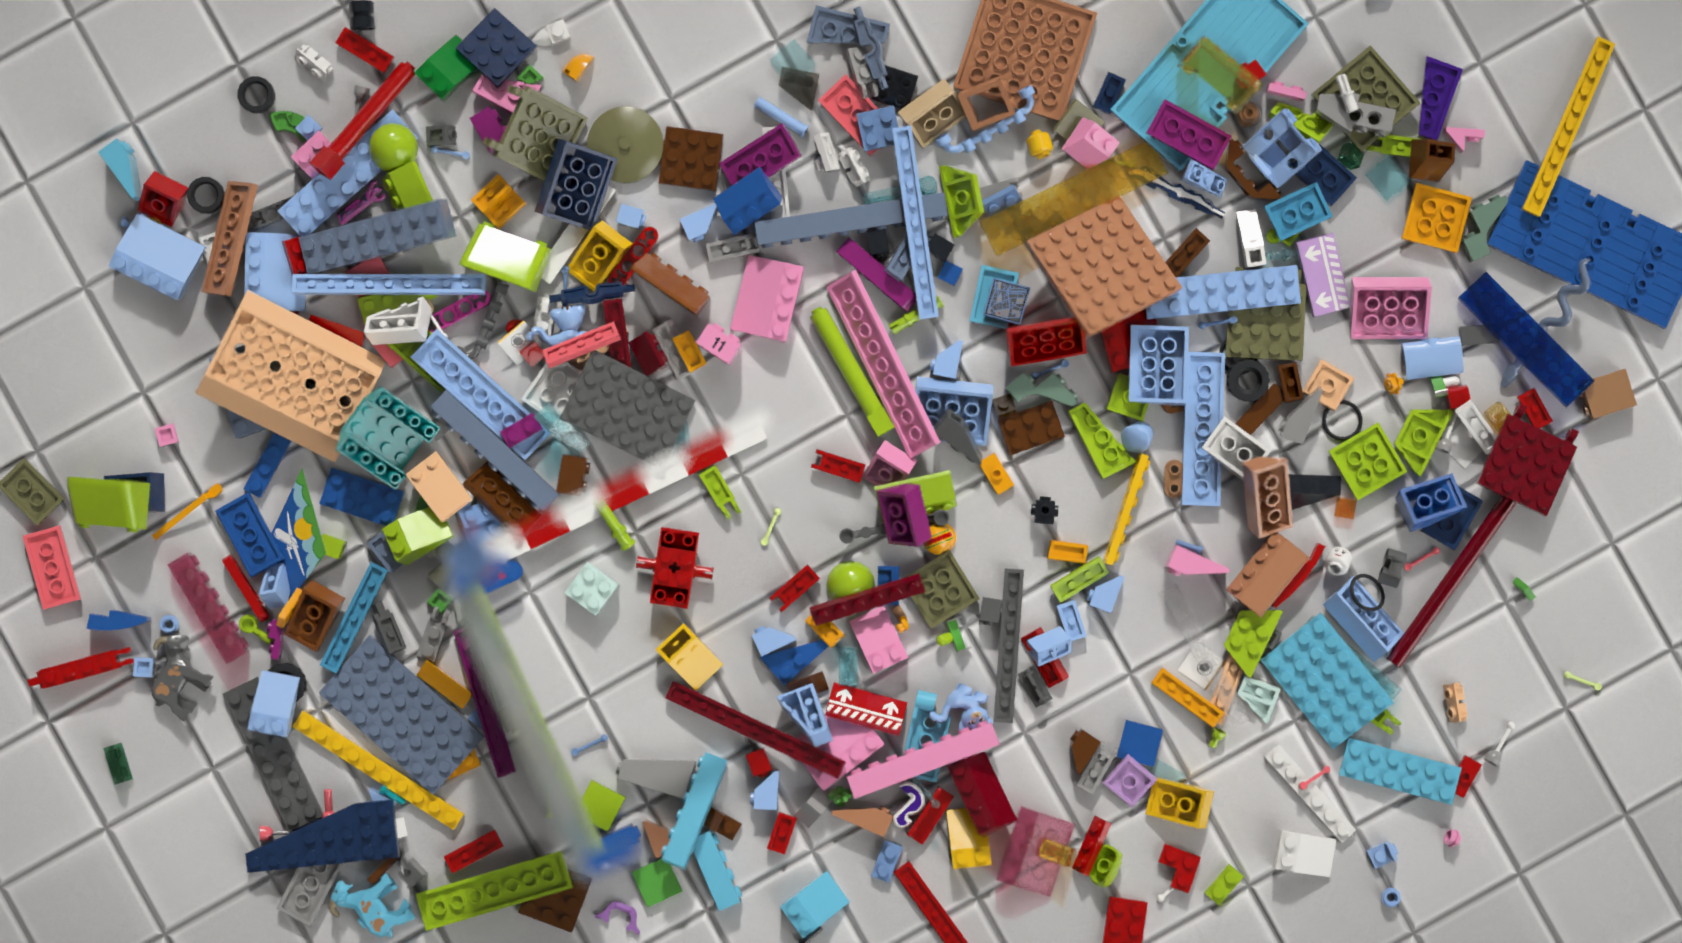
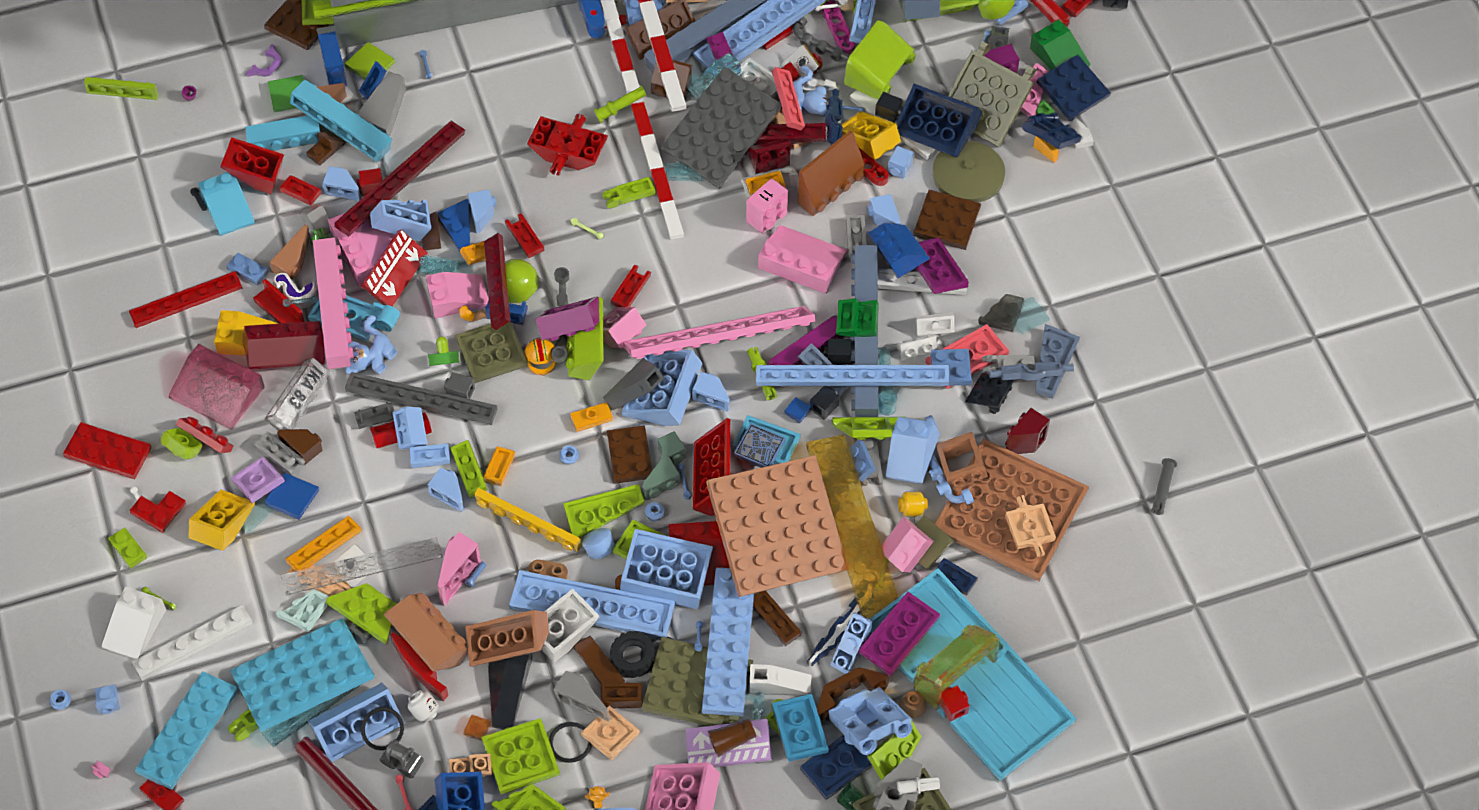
camera: 95 degrees right, 30 degrees down
(498, 201) = (932, 71): light orange slope -> none
(565, 237) = (888, 107): none -> black brick
(568, 51) = (1051, 130): none -> dark blue plate
(591, 588) = (565, 82): light aqua brick -> none
(631, 793) = (372, 80): none -> blue slope
(689, 656) = (484, 142): yellow slope -> none
(769, 887) = (252, 164): none -> red slope
(781, 116) = (960, 308): light blue pin -> none
(846, 228) = (857, 318): none -> green slope
(851, 371) = (718, 310): lime brick -> none
(933, 113) = (958, 414): tan slope -> none
(943, 42) = (1028, 433): none -> dark red slope
(984, 153) = (911, 449): none -> light blue slope
(1004, 406) = (655, 431): dark brown plate -> none
(1033, 766) = (297, 395): none -> clear brick
(1040, 517) = (543, 447): black brick -> none
(1047, 27) = (1030, 526): none -> light nougat plate
(1049, 486) = (566, 450): none -> light blue plate
(1057, 852) = (206, 403): clear yellow slope -> none
(1086, 395) = (654, 516): none -> light blue plate
(1217, 734) = (279, 566): lime piece -> none
(1264, 854) = (146, 590): none -> lime hinge
(1278, 88) = (928, 751): bright pink plate -> none
(1303, 785) = (211, 662): coral hinge -> none
(1323, 271) = (731, 736): none -> reddish brown plant
(1387, 504) = (474, 763): none -> light nougat slope
(1455, 711) = (233, 798): light nougat hinge -> none

